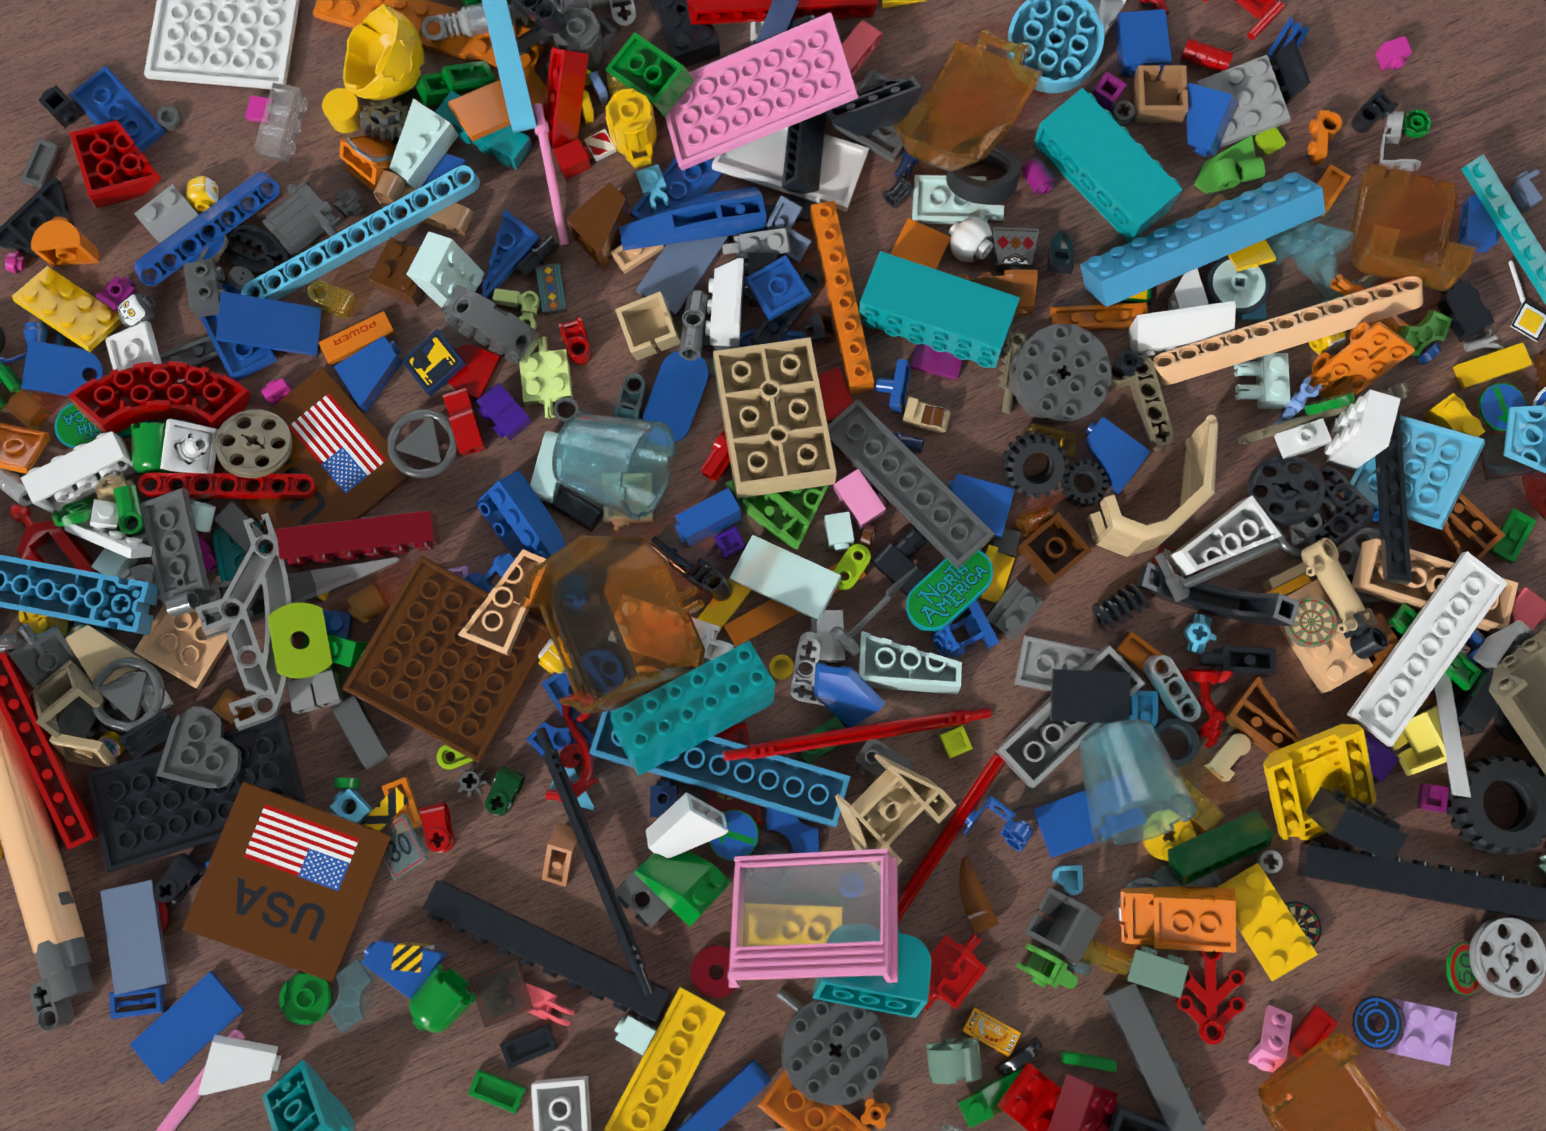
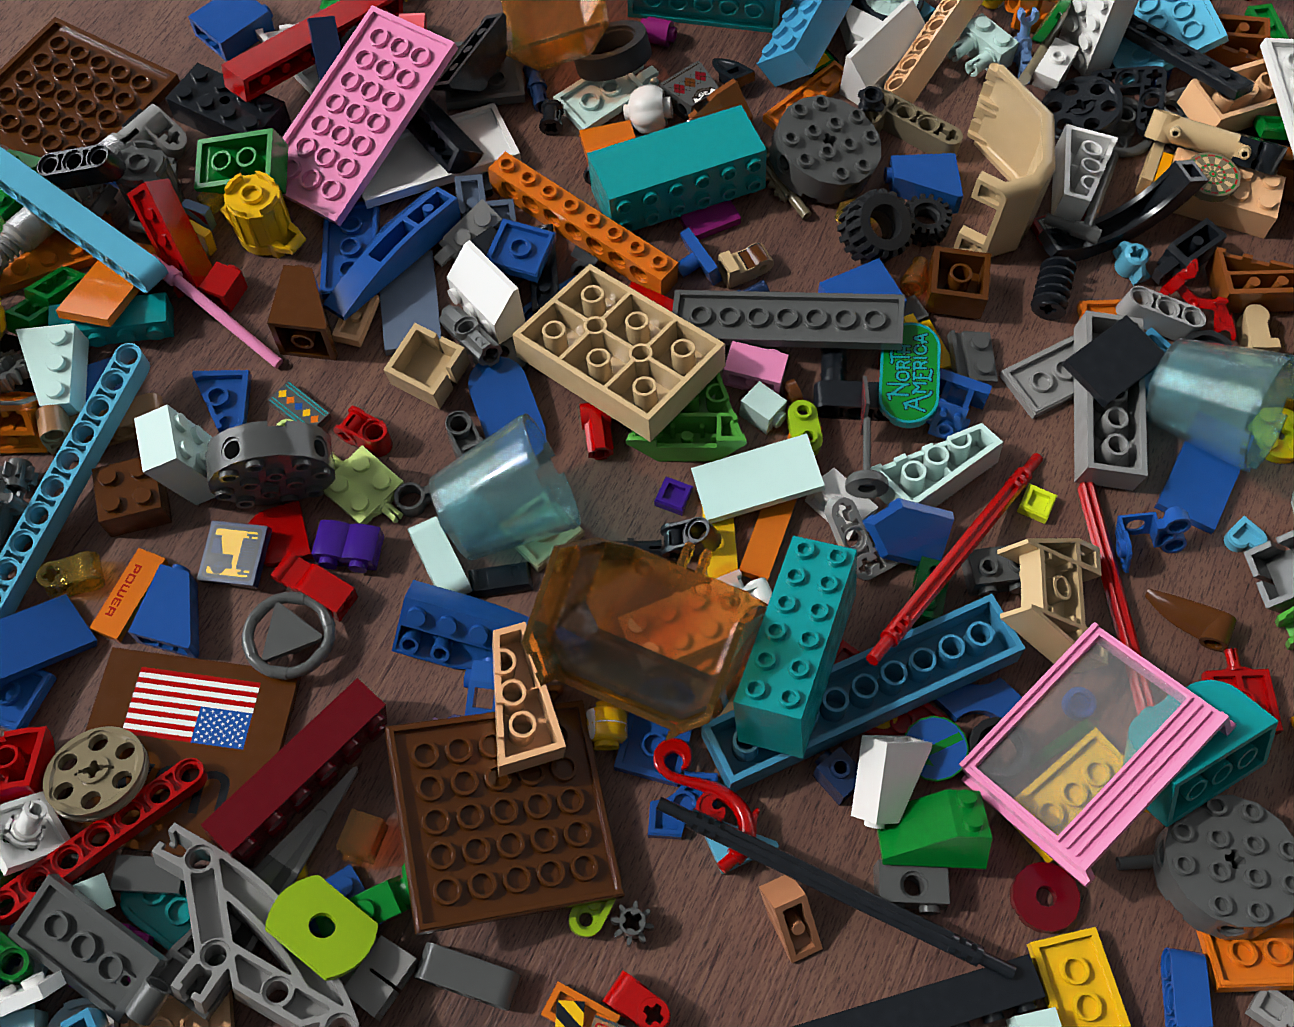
camera: 45 degrees left, 15 degrees down
(276, 390) = (79, 706): dark pink plate -> none
(505, 786) = (674, 900): dark green piece -> none
(536, 256) = (260, 389): black axle -> none
(600, 145) = (242, 258): white tile -> none
(653, 184) = (322, 253): medium azure plate -> none
(708, 518) = (638, 482): blue brick -> none

